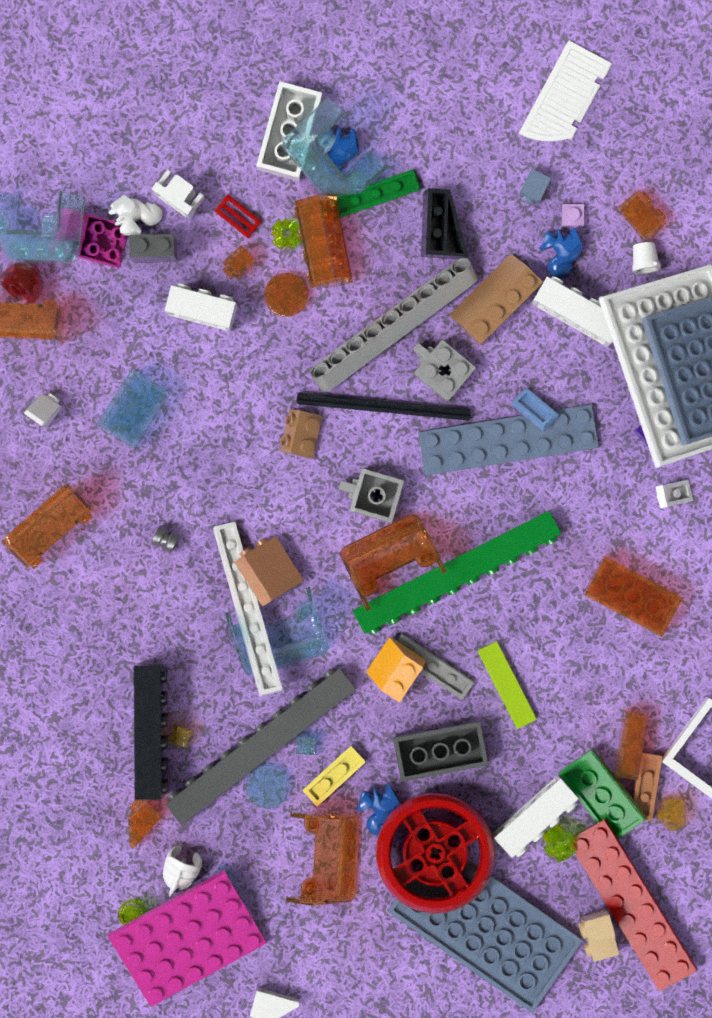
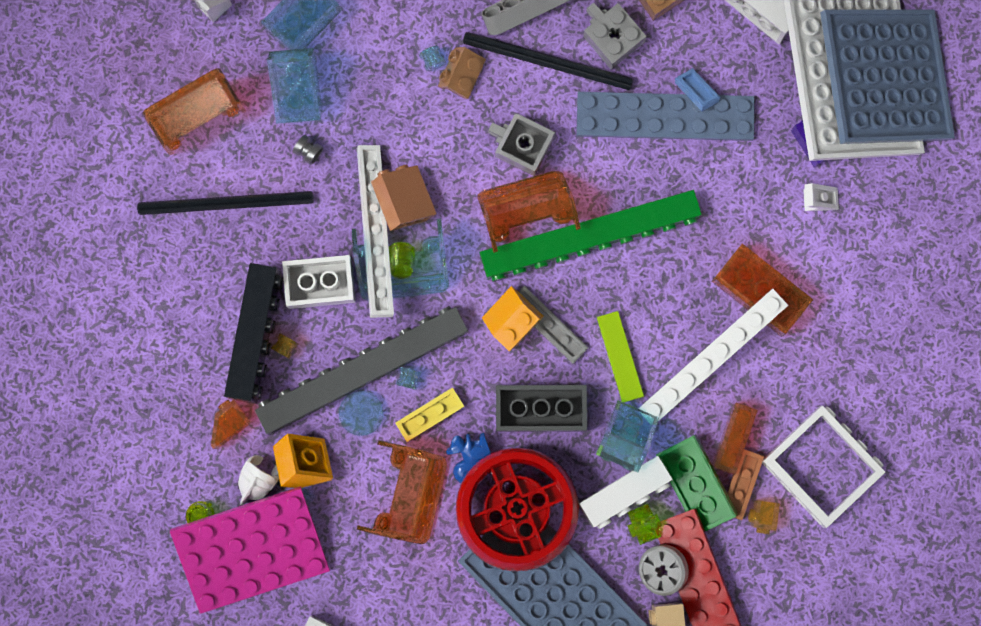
camera: 15 degrees right, 5 degrees down
(95, 606) = (222, 203): none -> black axle
(141, 481) = (294, 85): none -> clear light blue brick
(202, 668) = (318, 282): none -> white brick
(220, 844) = (302, 461): none -> light orange slope
(269, 425) = (432, 58): none -> clear light blue wheel
(278, 632) = (401, 259): none -> clear neon green piece
(528, 764) = (627, 436): none -> clear light blue brick
(575, 889) = (674, 563): none -> light grey wheel
(596, 670) = (715, 355): none -> white plate

